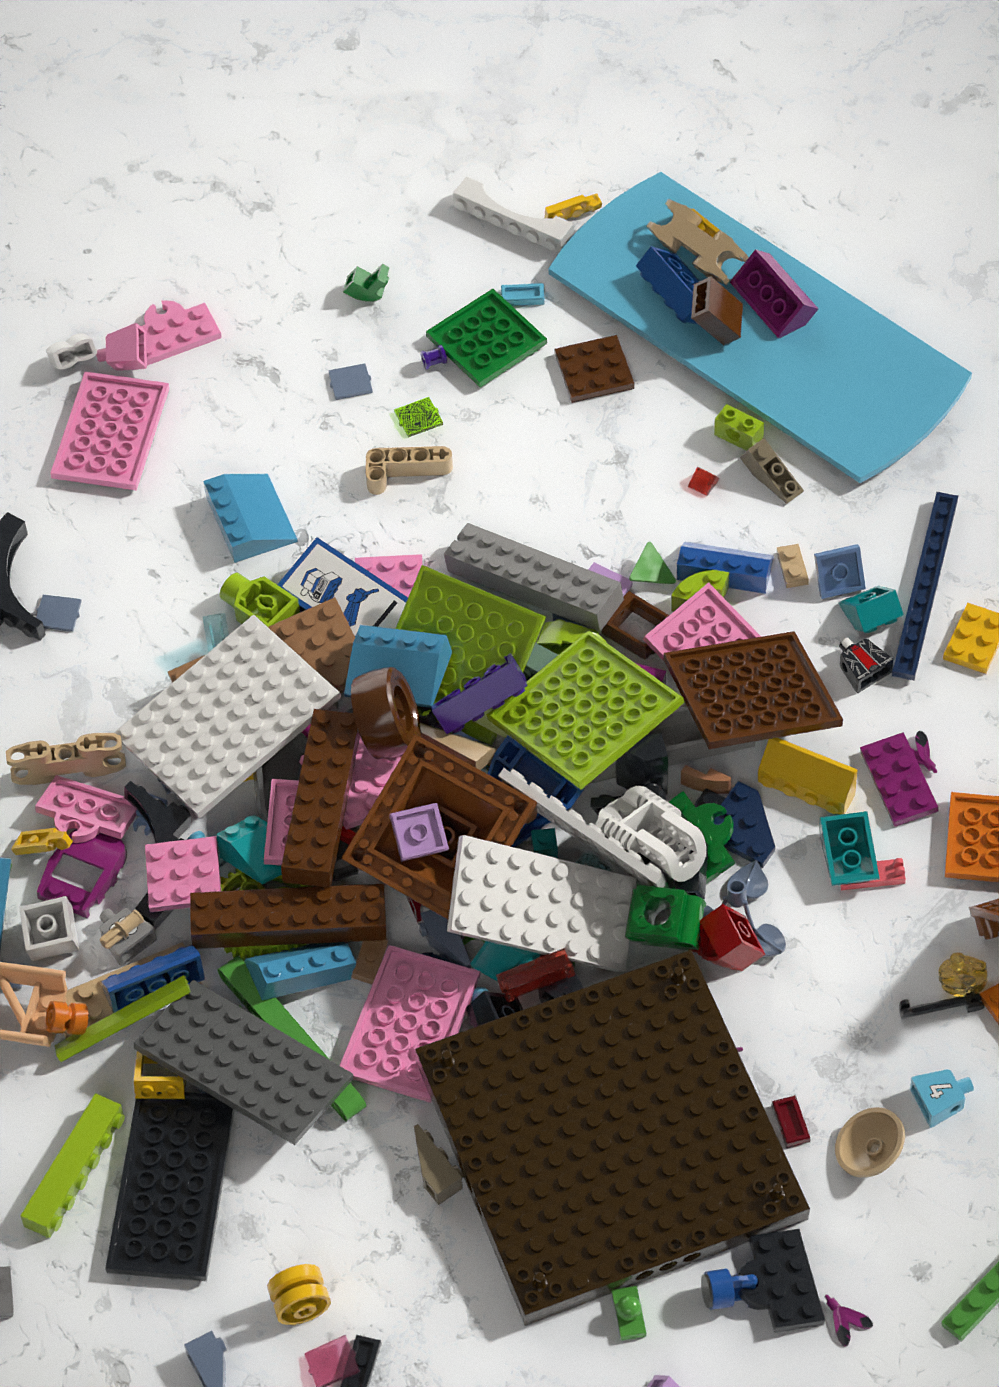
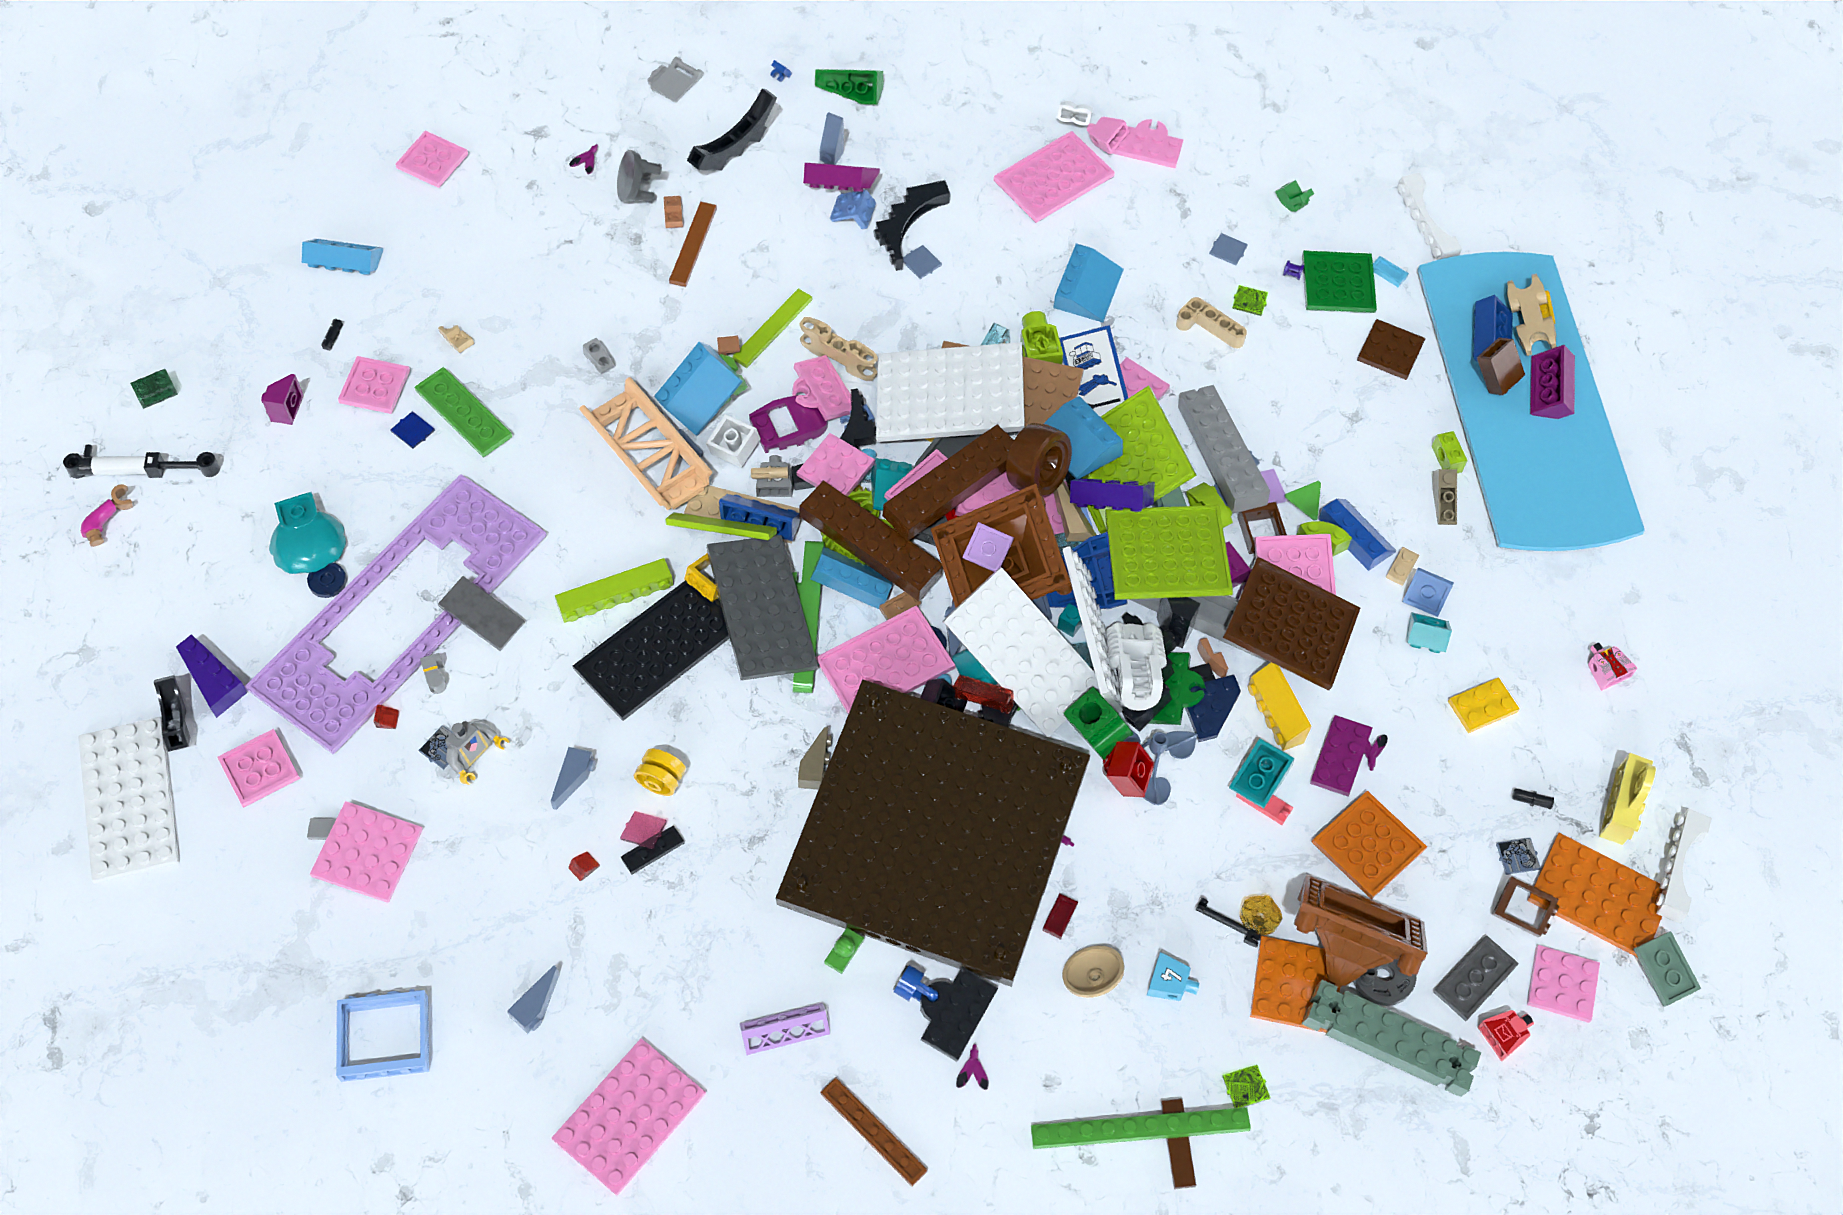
camera: 35 degrees right, 5 degrees up
(41, 841) = (777, 386): yellow hinge -> none
(64, 1017) = (688, 500): orange wheel -> none
(573, 207) = (1473, 239): yellow hinge -> none
(703, 481) = (1394, 470): clear red slope -> none
(864, 663) = (1389, 663): black torso -> none
(925, 586) = (1479, 645): dark blue plate -> none

